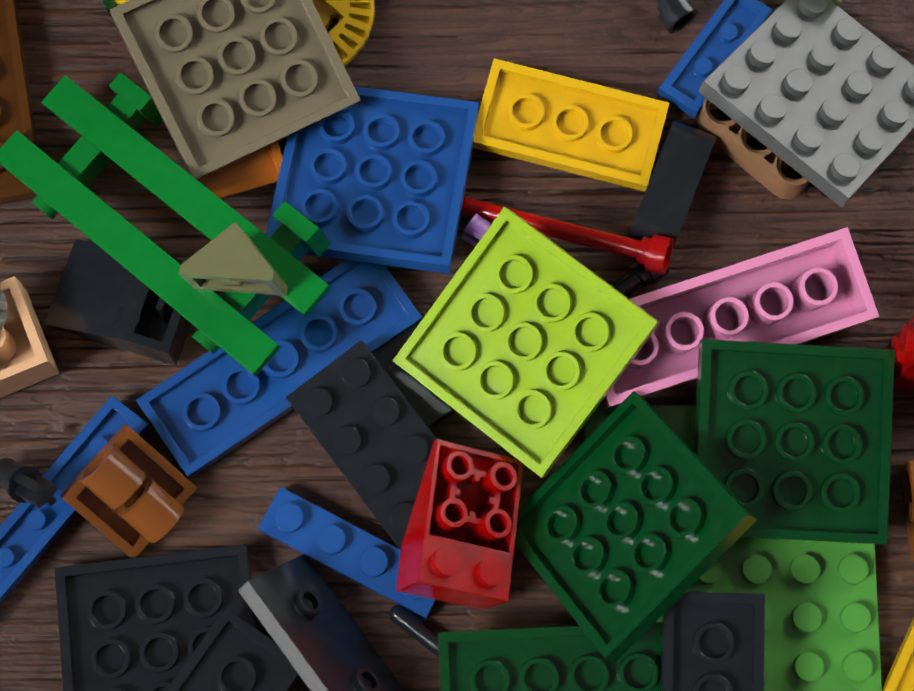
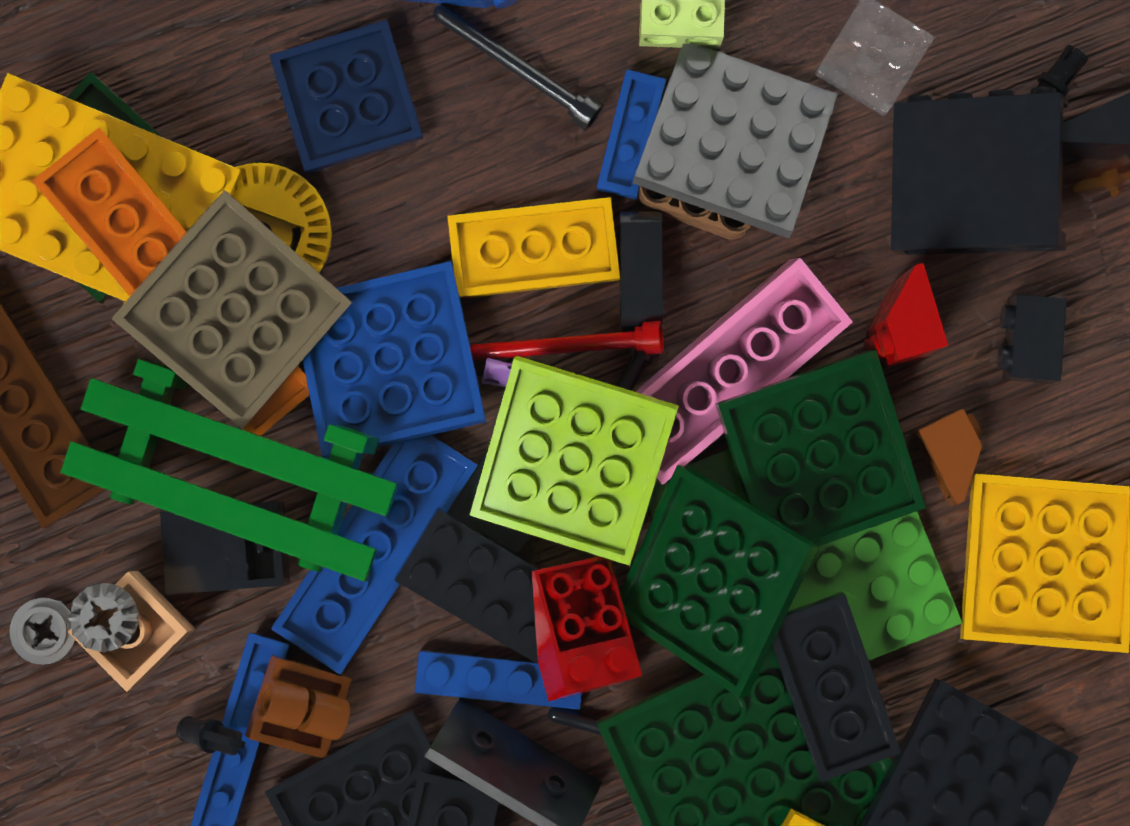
camera: 30 degrees left, 10 degrees up
(232, 265) = (311, 497): olive slope -> none

